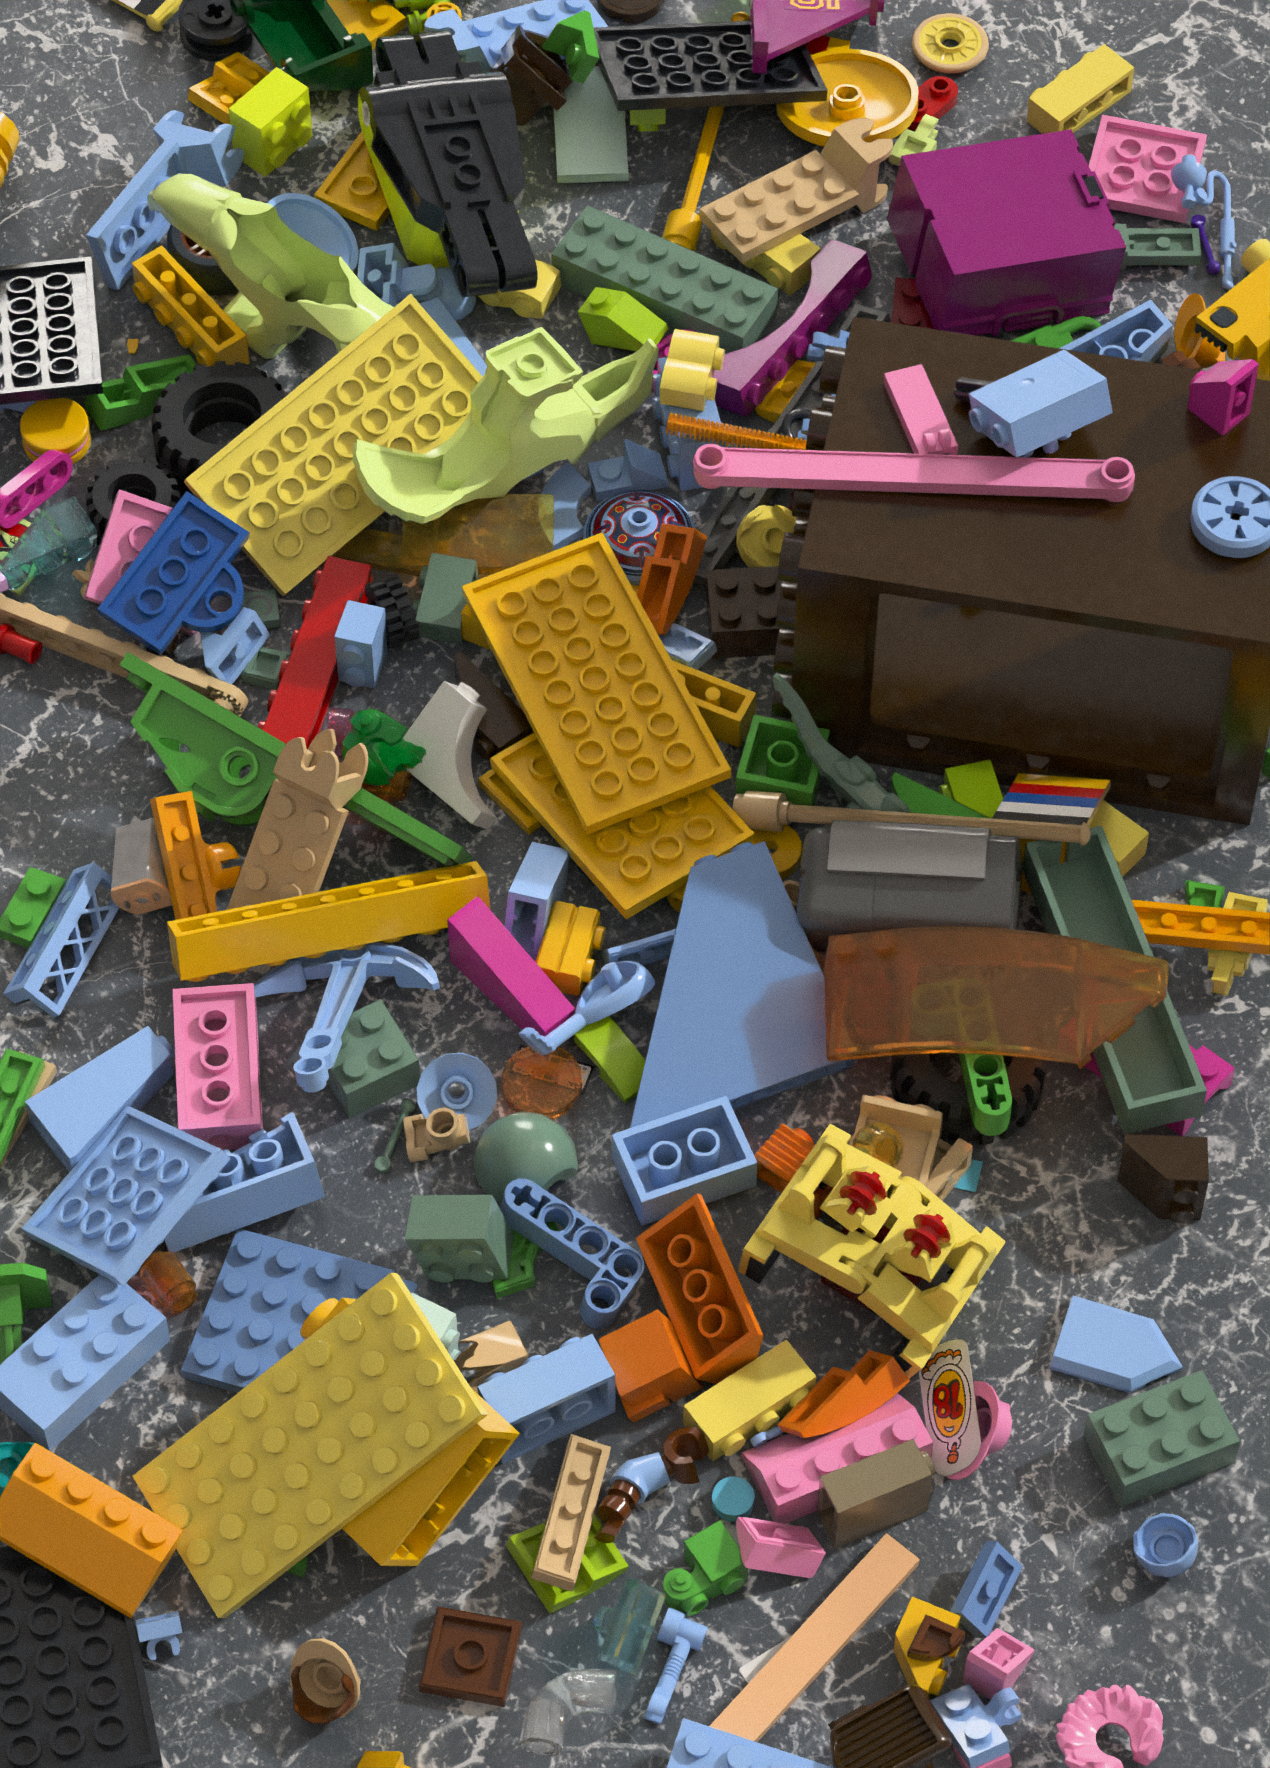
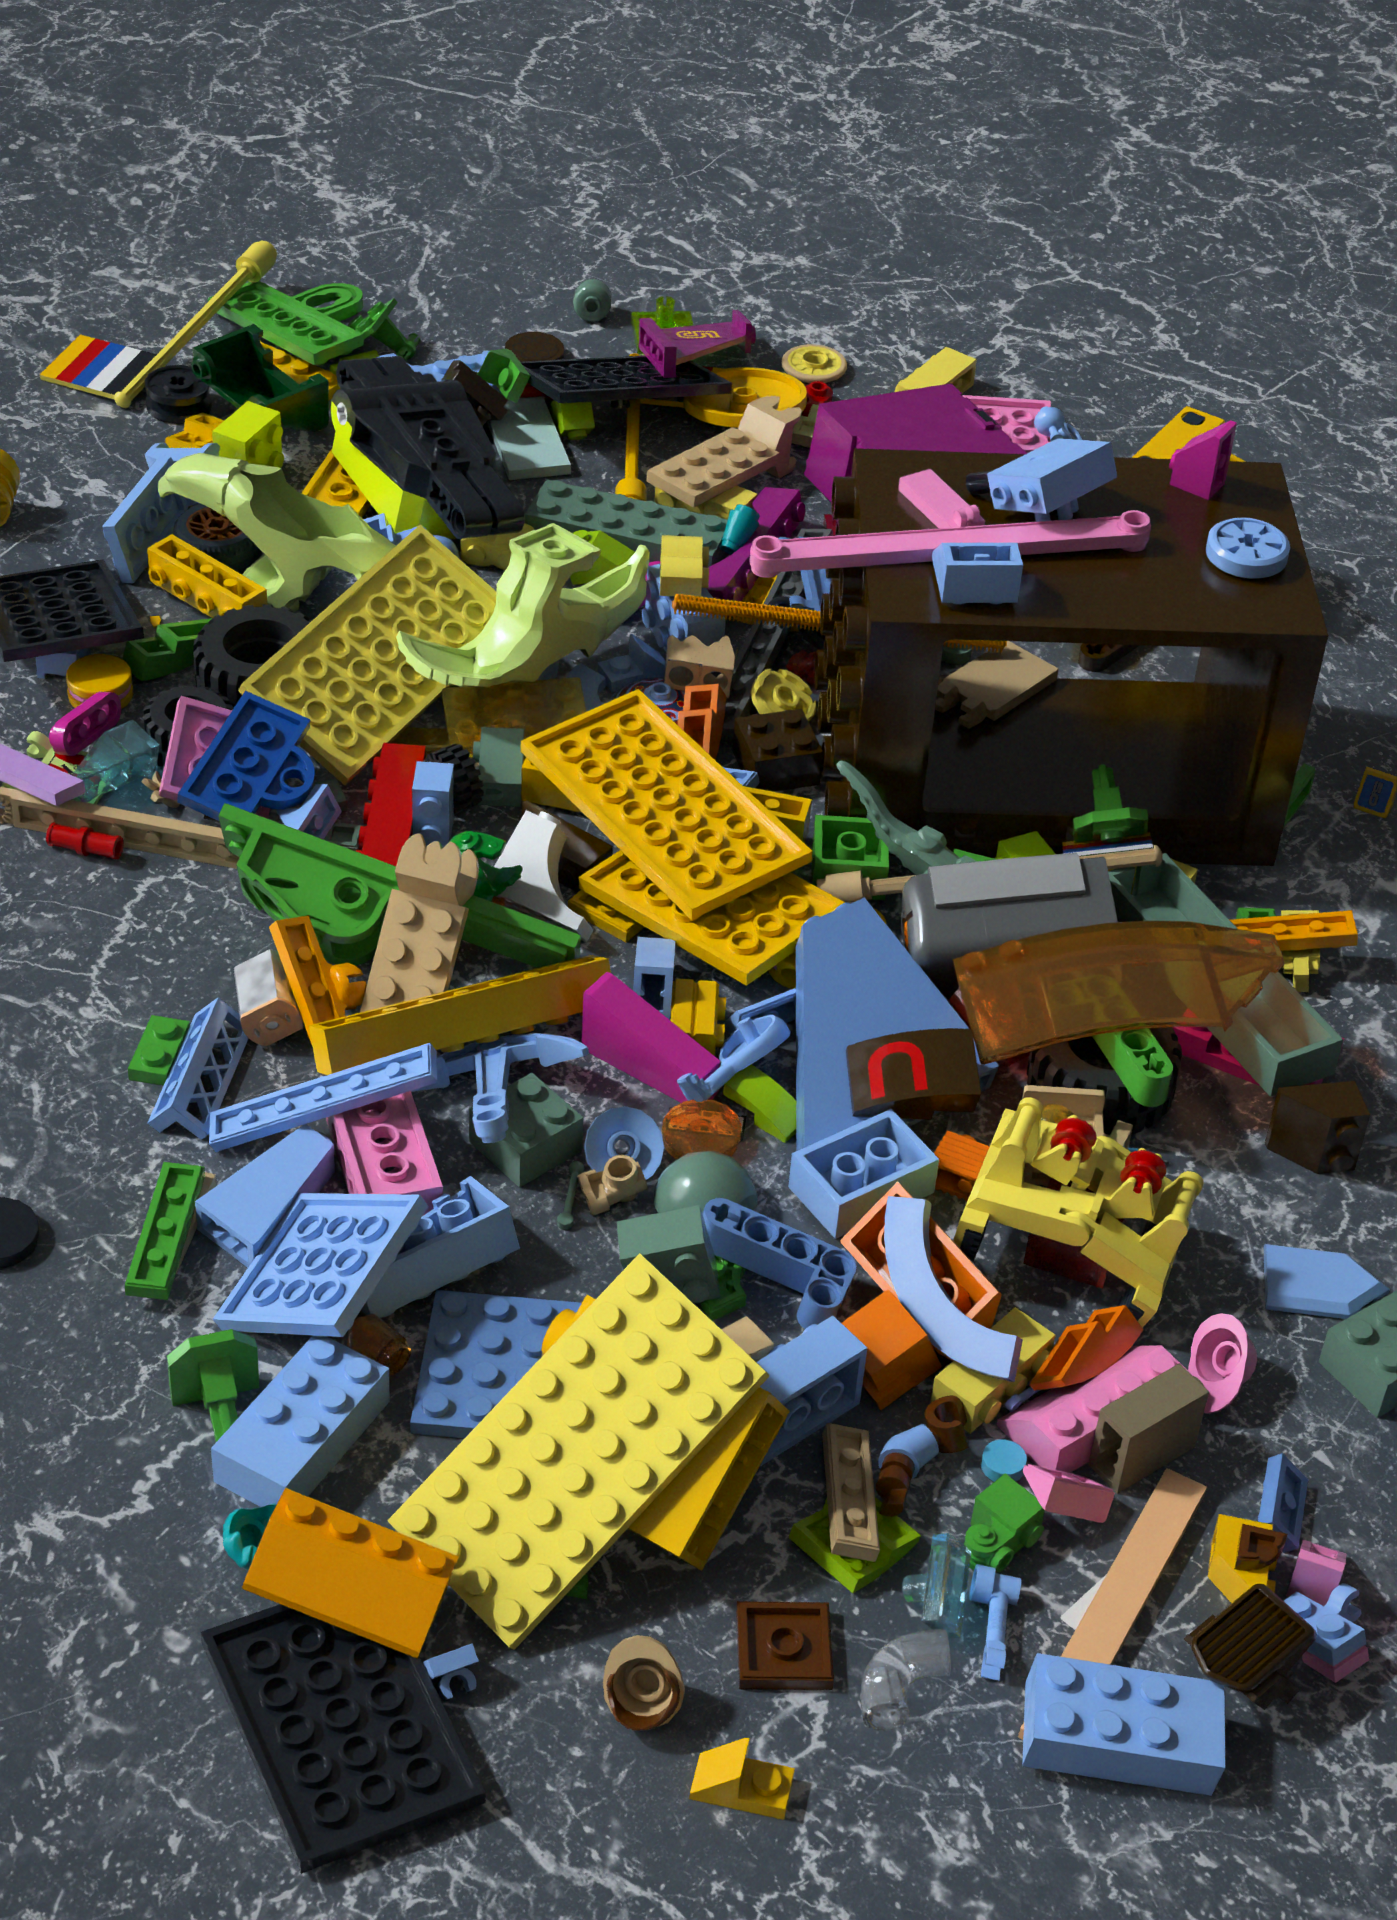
camera: 15 degrees left, 15 degrees down
(167, 1004) = (323, 1097): none -> light blue tile
(681, 499) = (693, 652): none -> tan piece
(695, 1327) = (928, 1302): none -> tile
(758, 1059) = (914, 1073): none -> dark brown slope
(781, 304) = (739, 528): none -> teal cone
(922, 524) = (978, 572): none -> light blue slope
(950, 1407) = (1192, 1340): sticker -> none
(1062, 756) = (1109, 819): none -> bright green piece

